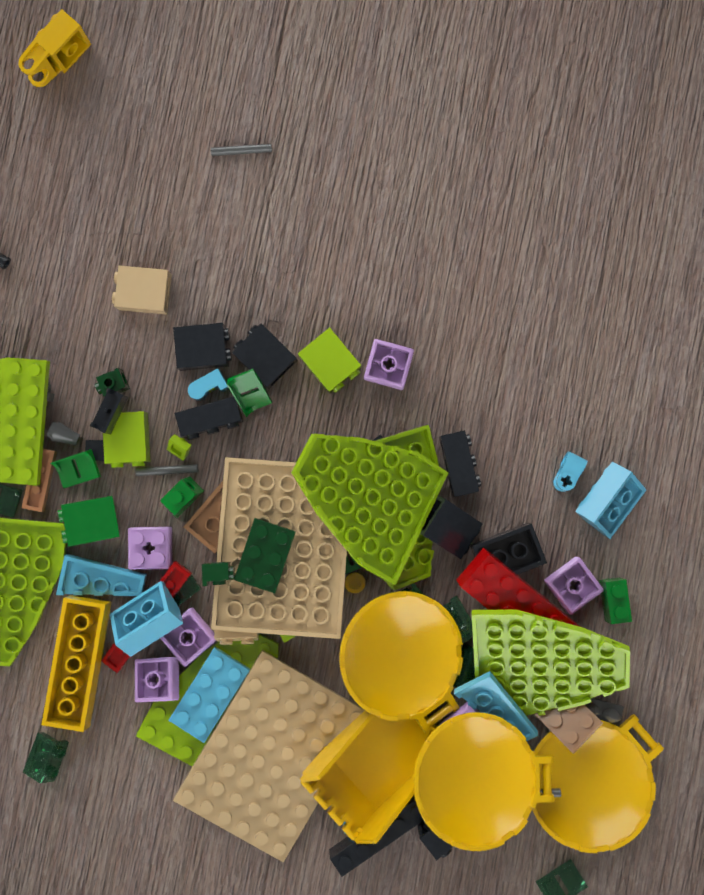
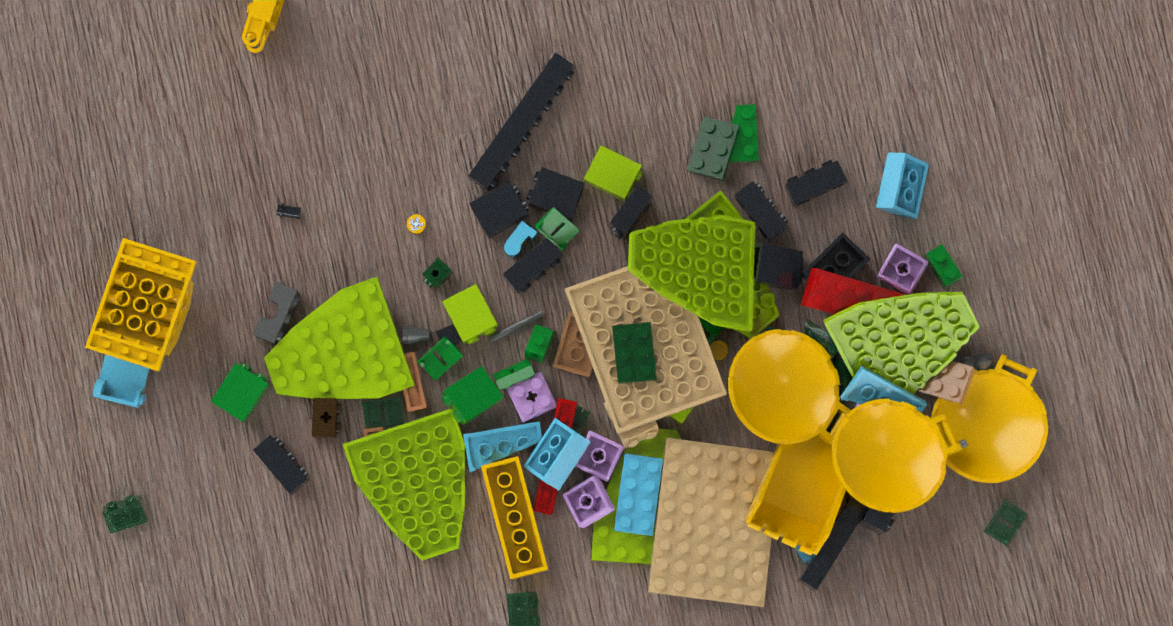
camera: 20 degrees left, 5 degrees down
(109, 411) = (448, 295): black hinge -> none
(115, 325) = (416, 224): none -> yellow tile
(131, 518) = (505, 378): none -> green piece
(142, 290) = (426, 184): tan brick -> none
(178, 447) = (518, 302): lime plate -> none
(217, 572) = (602, 382): dark green brick -> none
(245, 149) = (456, 29): dark grey bar -> none
(263, 269) = (521, 122): none -> black brick
(328, 408) = (630, 213): none -> black brick
(382, 352) = (671, 145): lavender brick -> none
(440, 380) = (713, 148): none -> dark green plate
(474, 381) = (747, 142): none -> green wing
(526, 459) = (815, 183): none -> black brick
(571, 469) = (856, 175): medium azure piece -> none

